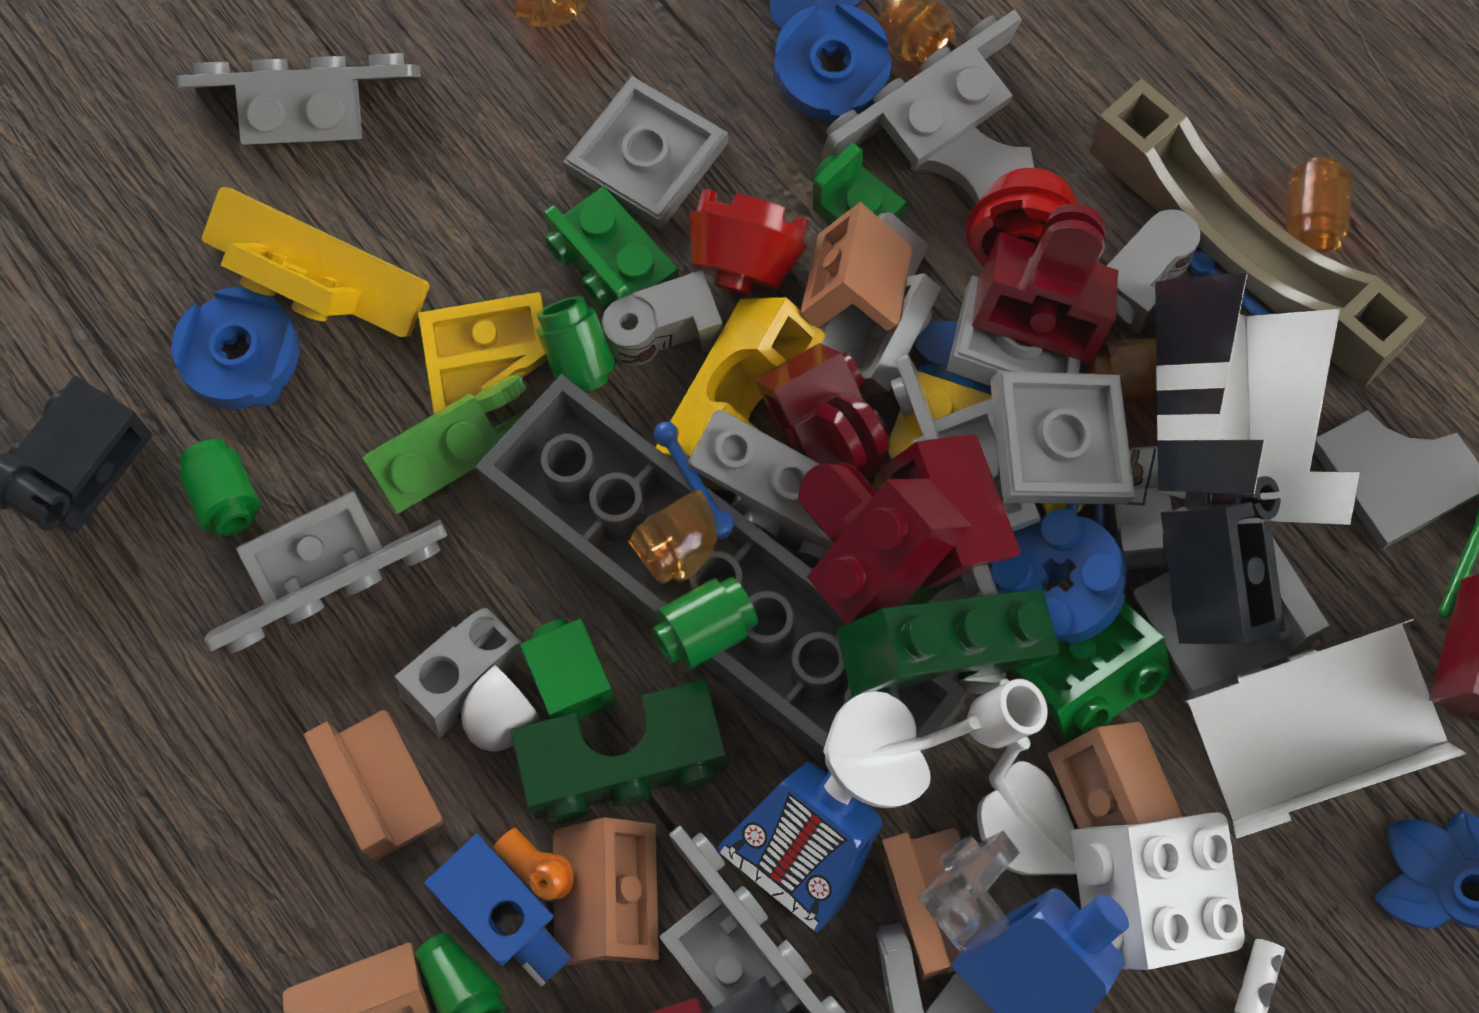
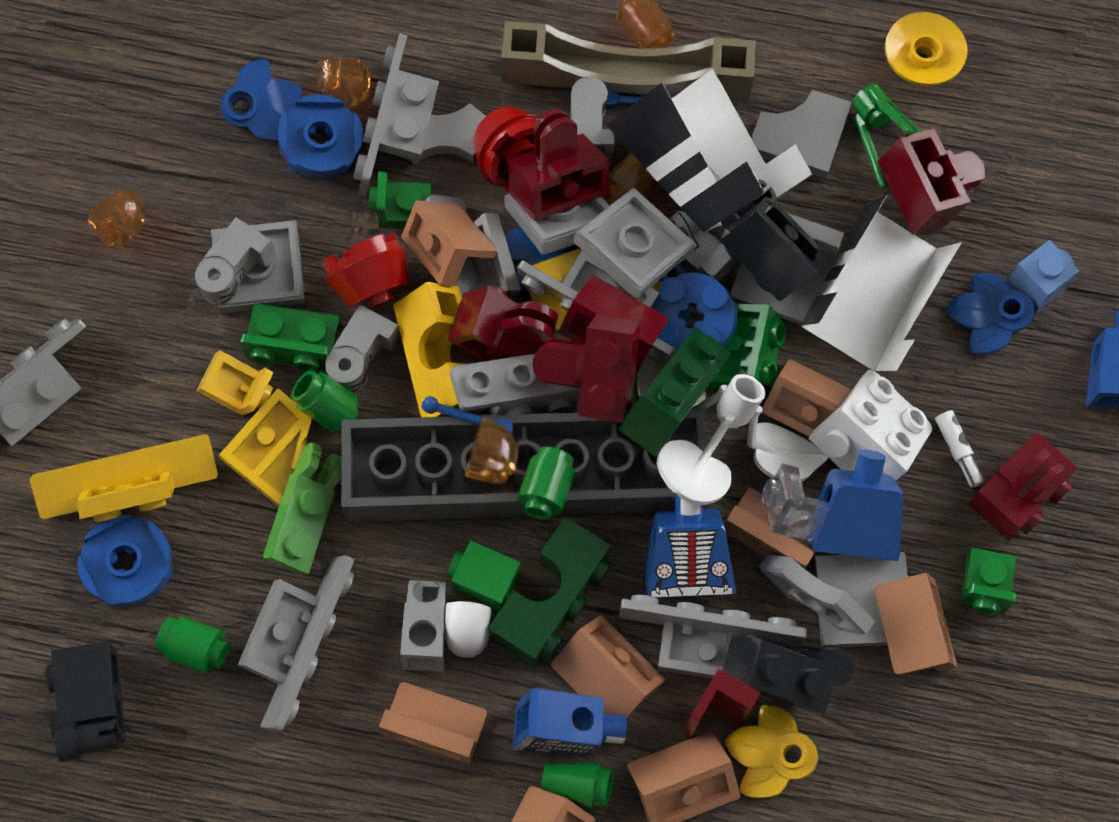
camera: 50 degrees left, 0 degrees up
(505, 253) = (235, 384): none -> yellow bracket
(543, 873) = (571, 682): orange arm -> none
(611, 121) = (231, 260): none -> light grey leg

